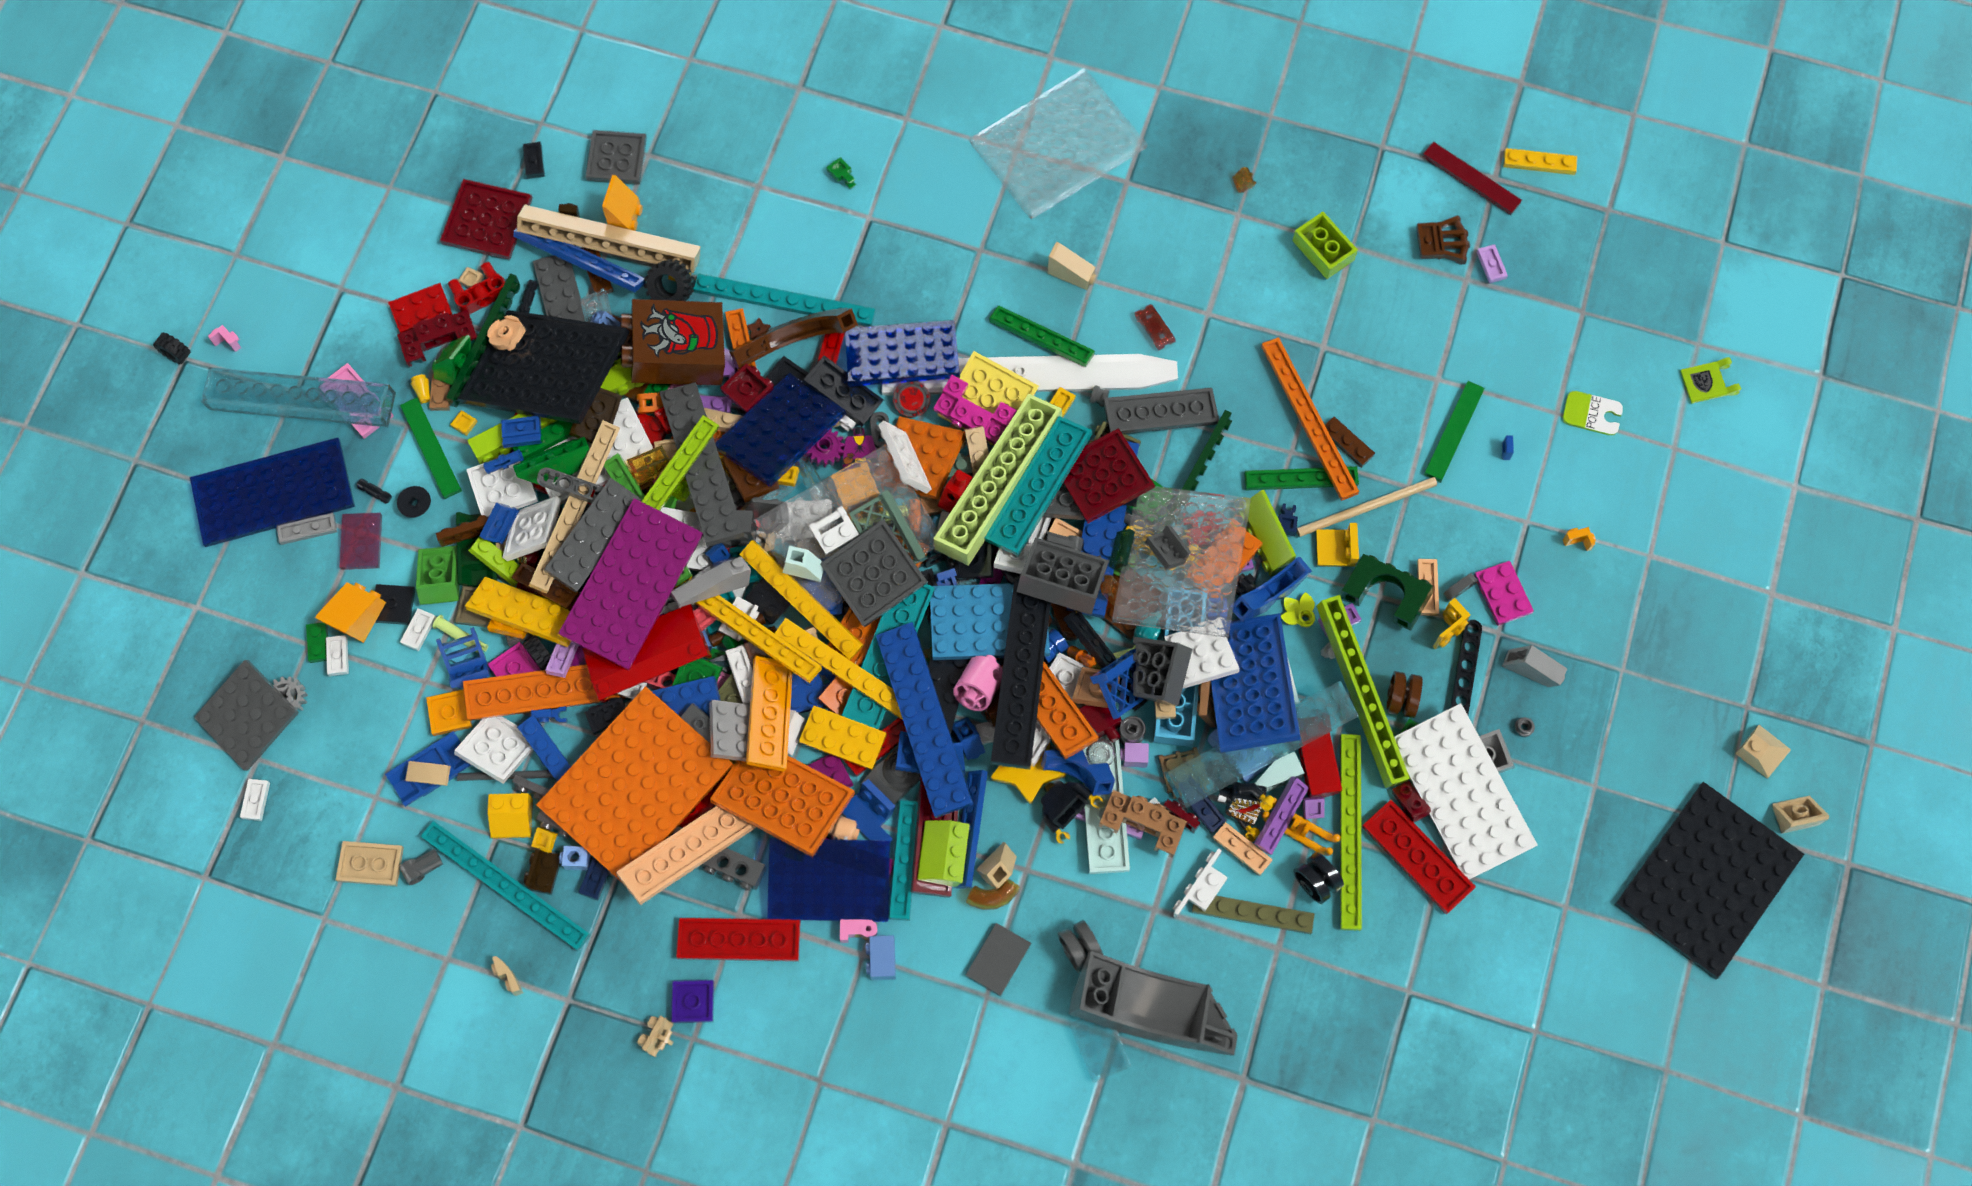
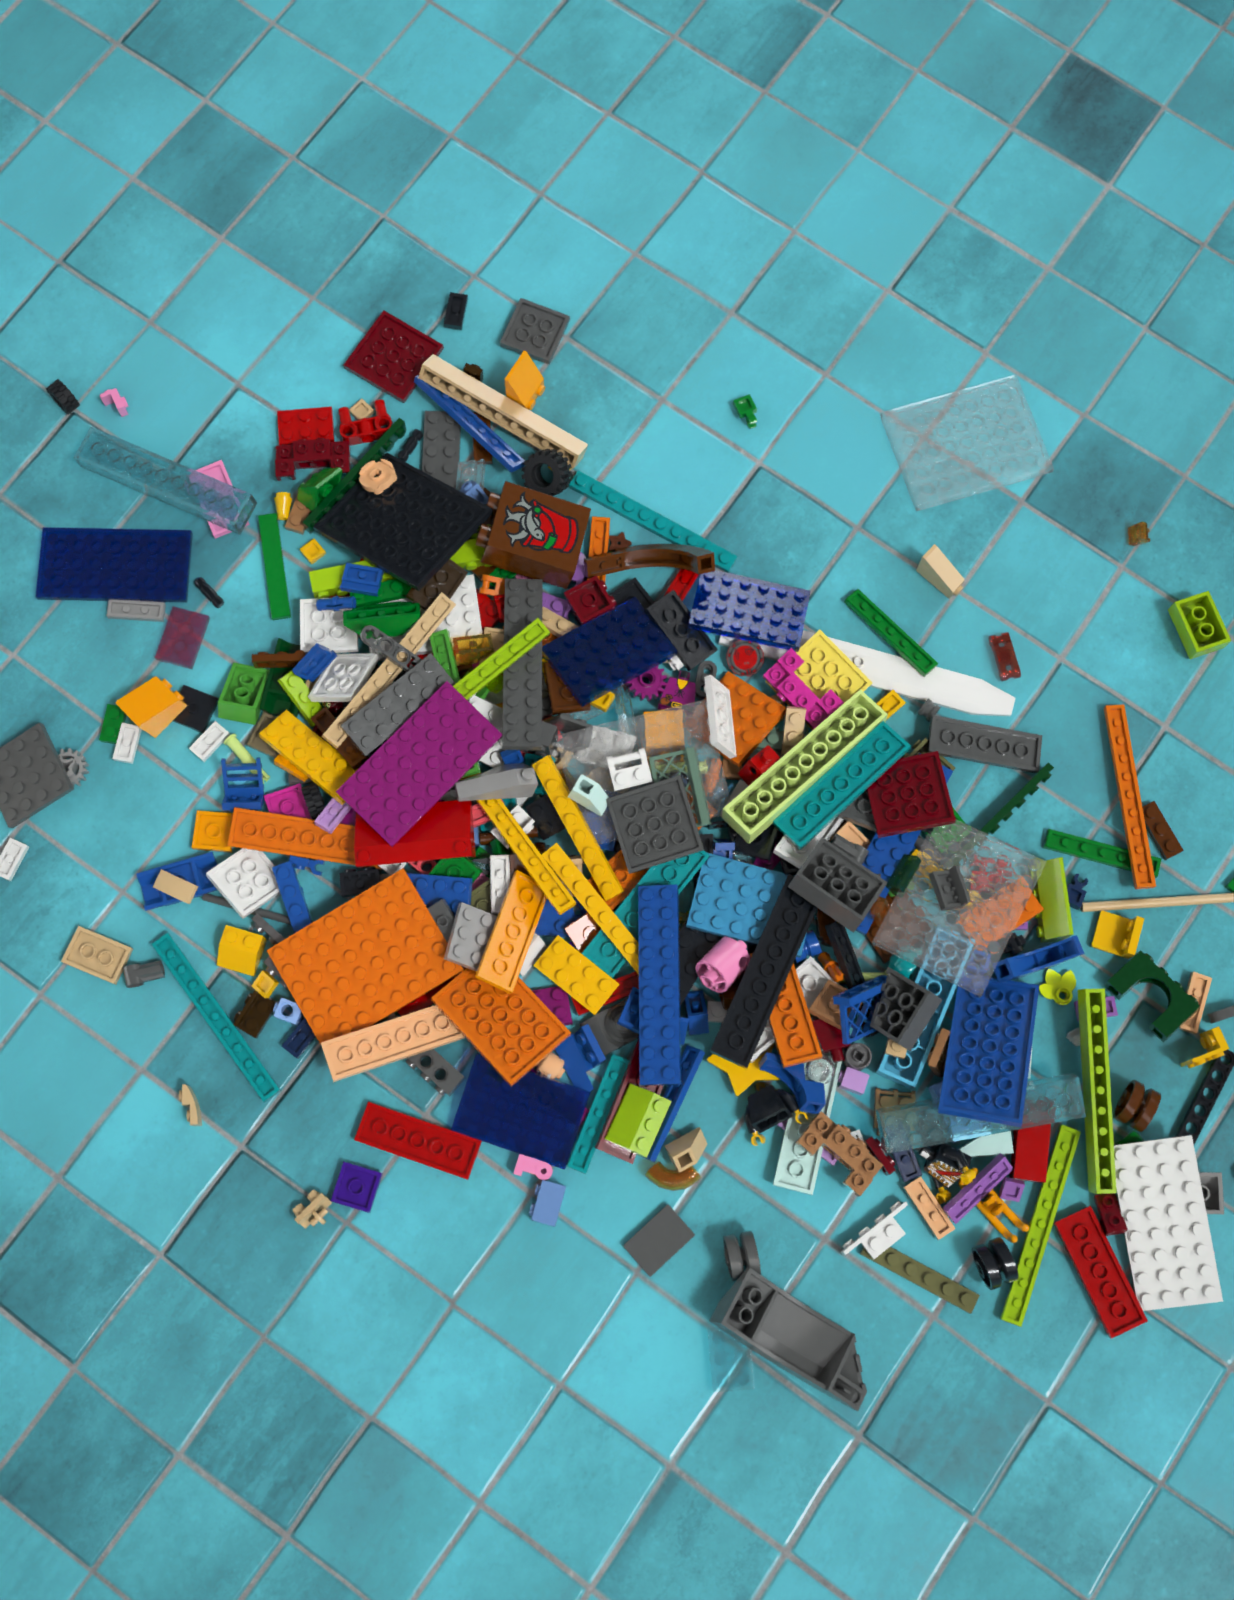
camera: 15 degrees right, 5 degrees up
(407, 498) = (239, 608): black piece -> none
(1209, 659) = (958, 1010): white plate -> none

